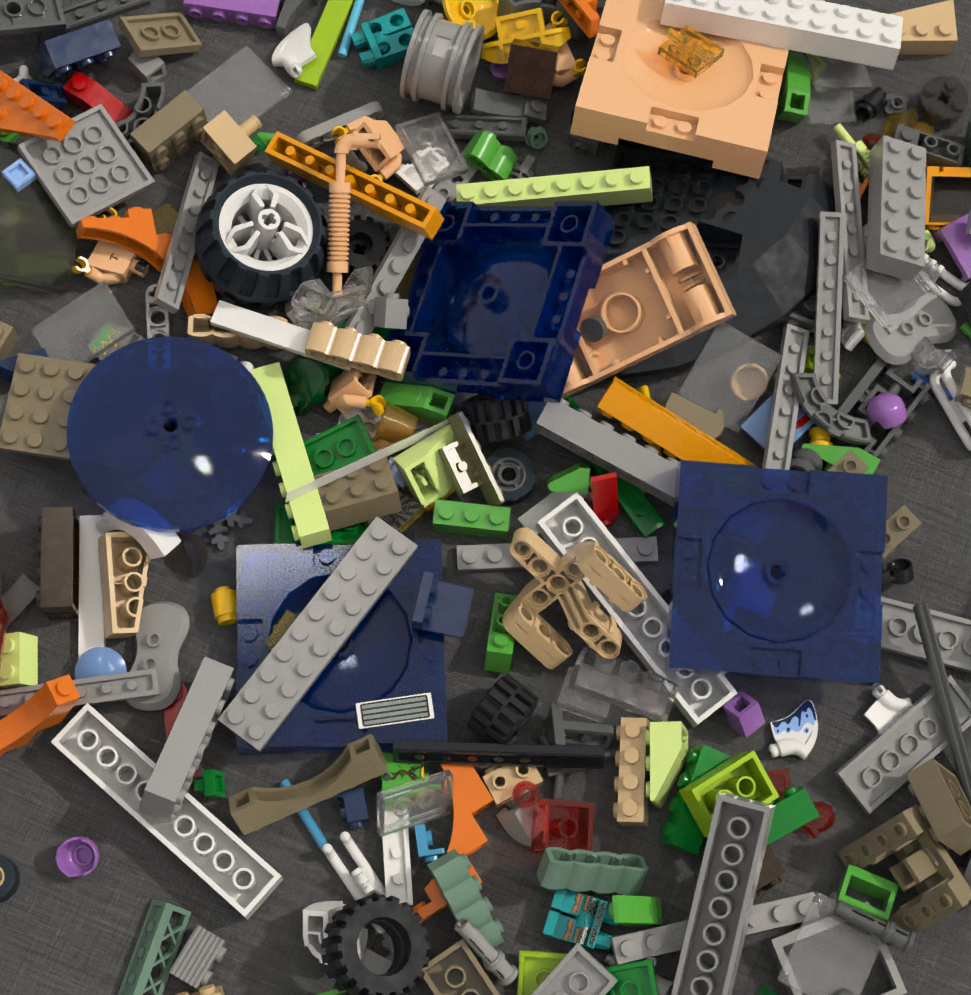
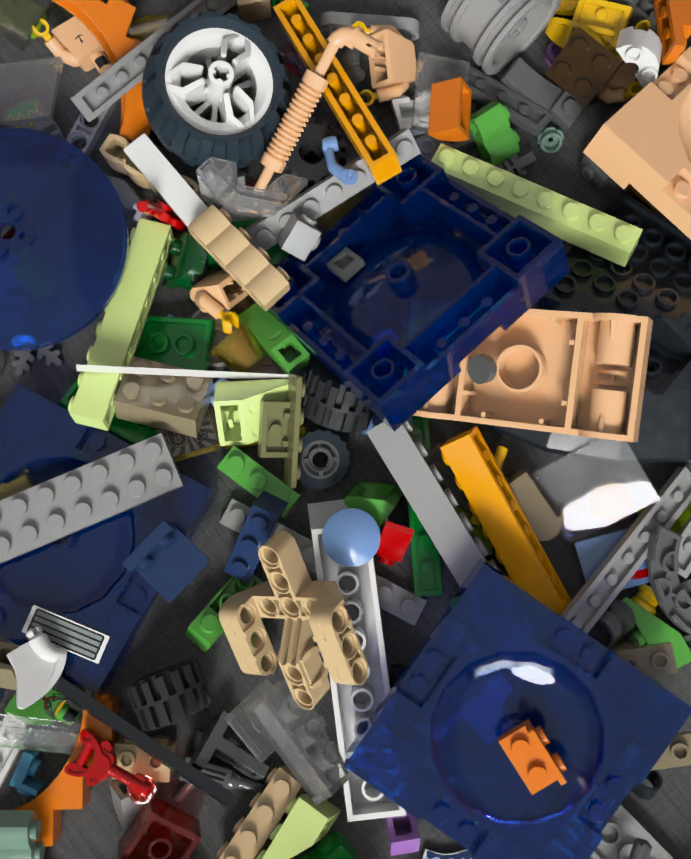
camera: 35 degrees right, 10 degrees up
(266, 355) = (162, 212): none -> red piece
(373, 233) = (347, 176): none -> medium blue piece
(391, 738) = (36, 667): none -> white arm
(439, 314) = (345, 264): none -> dark grey tile
(448, 156) = (450, 110): none -> orange brick
(486, 791) = (104, 765): none -> red piece
(496, 557) = (257, 529): none -> dark blue brick
(568, 36) = (642, 49): none -> white cylinder
(571, 508) = (351, 537): none -> medium blue dish
(798, 576) = (531, 757): none -> orange bracket

